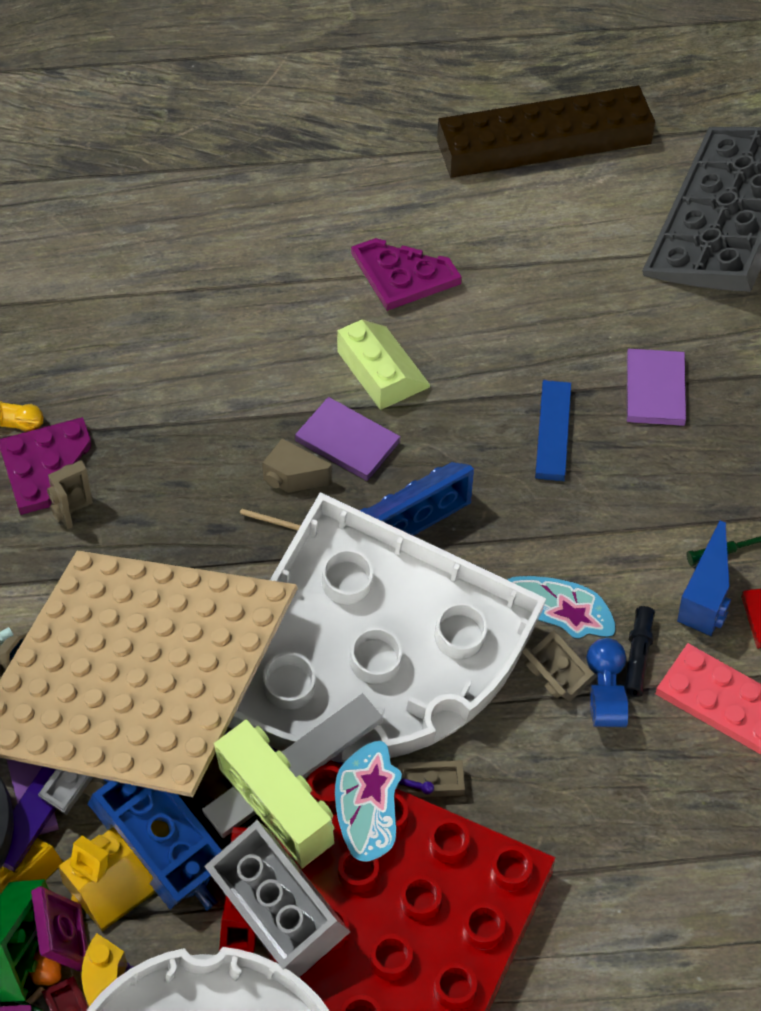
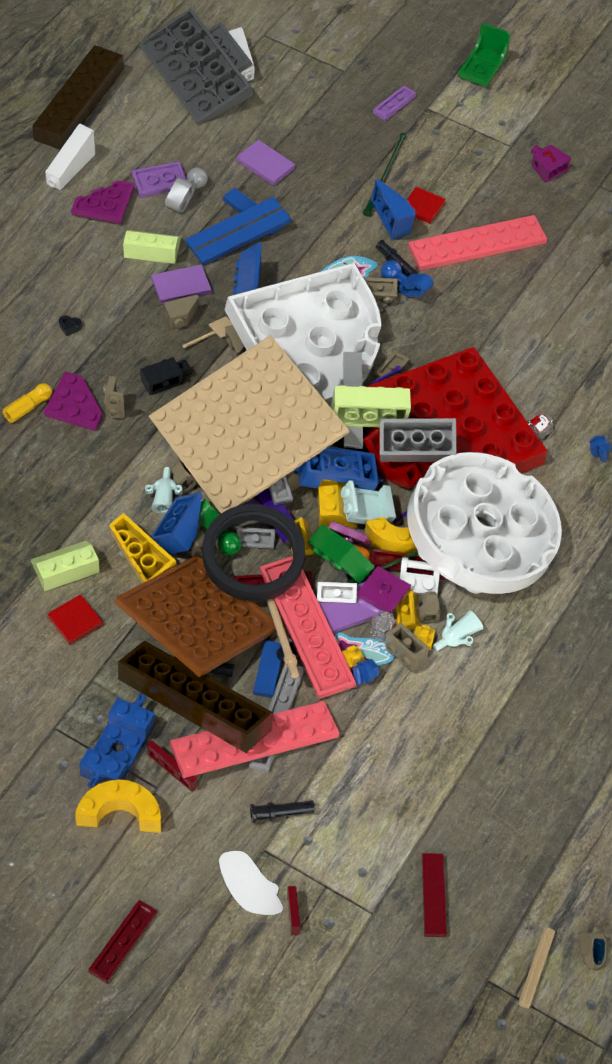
camera: 55 degrees left, 0 degrees up
(90, 857) = (334, 495): yellow tile -> none
(133, 913) = (366, 505): none -> light aqua panel
(168, 372) = (70, 325): none -> black tile
(168, 522) = (164, 375): none -> black brick
(366, 801) = (388, 378): sticker -> none
(432, 190) = (72, 157): none -> white slope
(498, 436) = (238, 231): none -> blue tile
(500, 331) = (183, 189): none -> light grey beam
(504, 299) = (157, 179): none -> medium lavender tile

